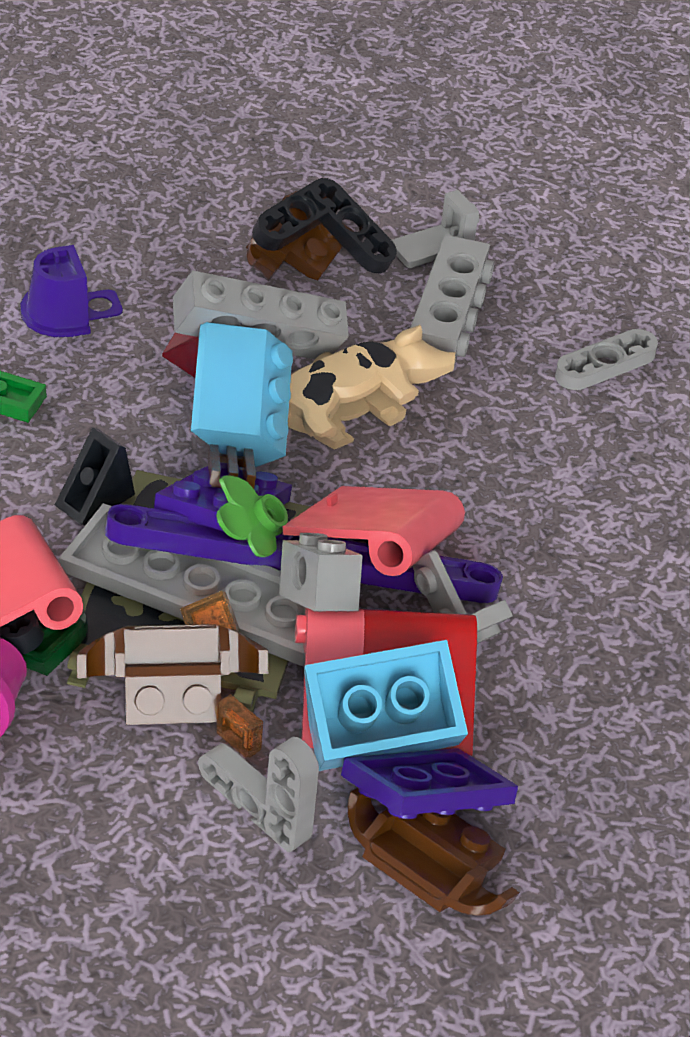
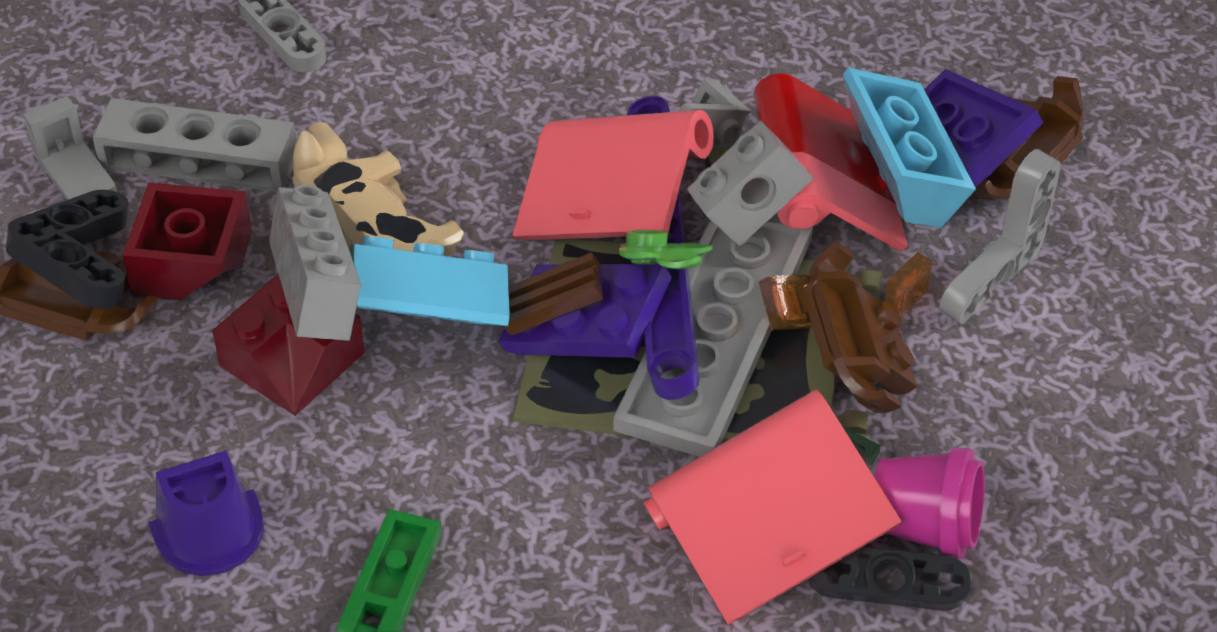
camera: 90 degrees left, 5 degrees up
(96, 478) = (555, 442): black slope -> none
(333, 273) = (185, 239): none -> dark red slope

